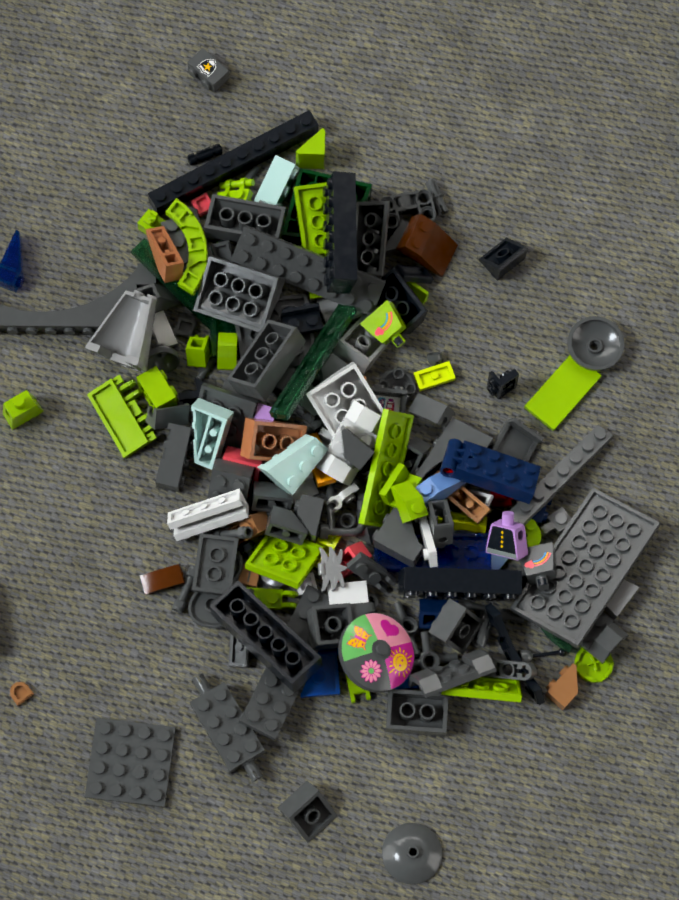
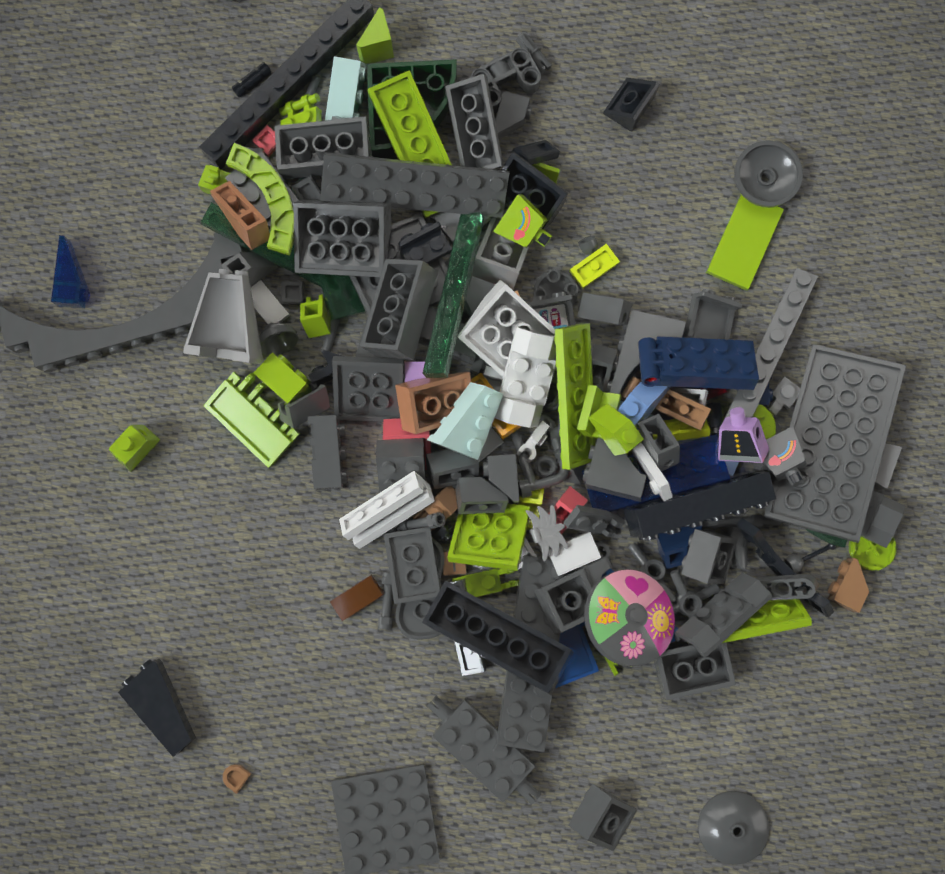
camera: 10 degrees left, 10 degrees up
(210, 431) = (358, 407): light aqua wedge -> none
(227, 351) = (349, 308): lime slope -> none
(340, 232) = (440, 129): black brick -> none
(354, 449) = (535, 386): dark grey slope -> none
(427, 244) = (541, 112): reddish brown slope -> none
(503, 384) = (672, 258): black bracket -> none

